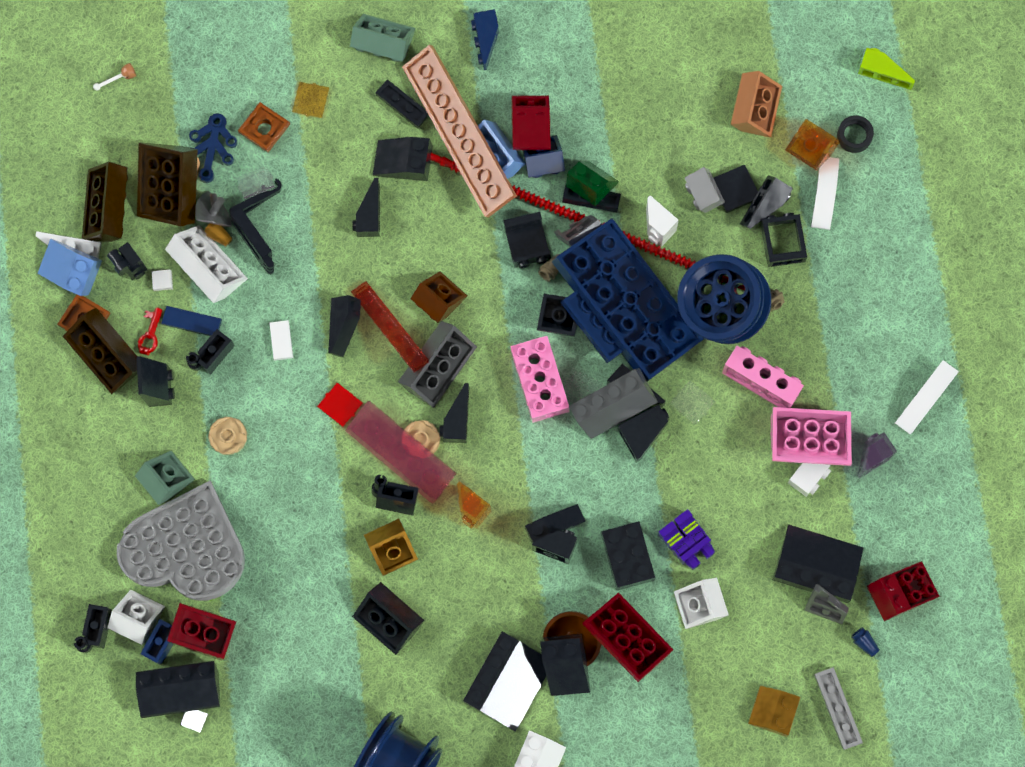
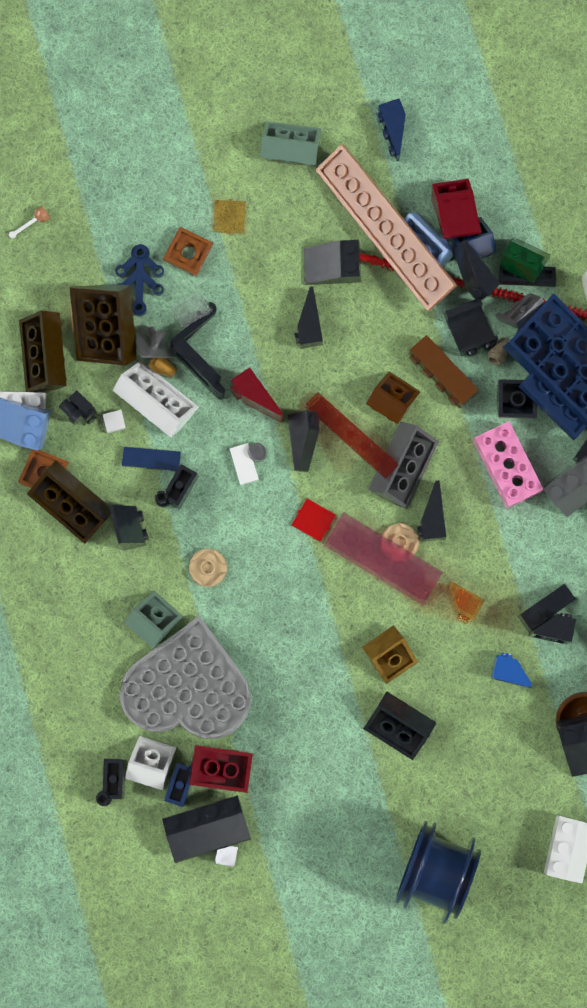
camera: 10 degrees left, 5 degrees up
(150, 334) = (114, 459): red piece -> none
(295, 330) = (257, 452): none -> flat silver piece
(300, 272) = (252, 393): none -> dark red slope
(394, 496) = (386, 604): black hinge -> none
(402, 103) = (322, 207): black plate -> none
(492, 279) = (443, 372): none -> reddish brown brick
(506, 581) = (509, 671): none -> blue slope
(507, 682) = (527, 769): slope -> none
(537, 186) = (475, 273): none -> black slope

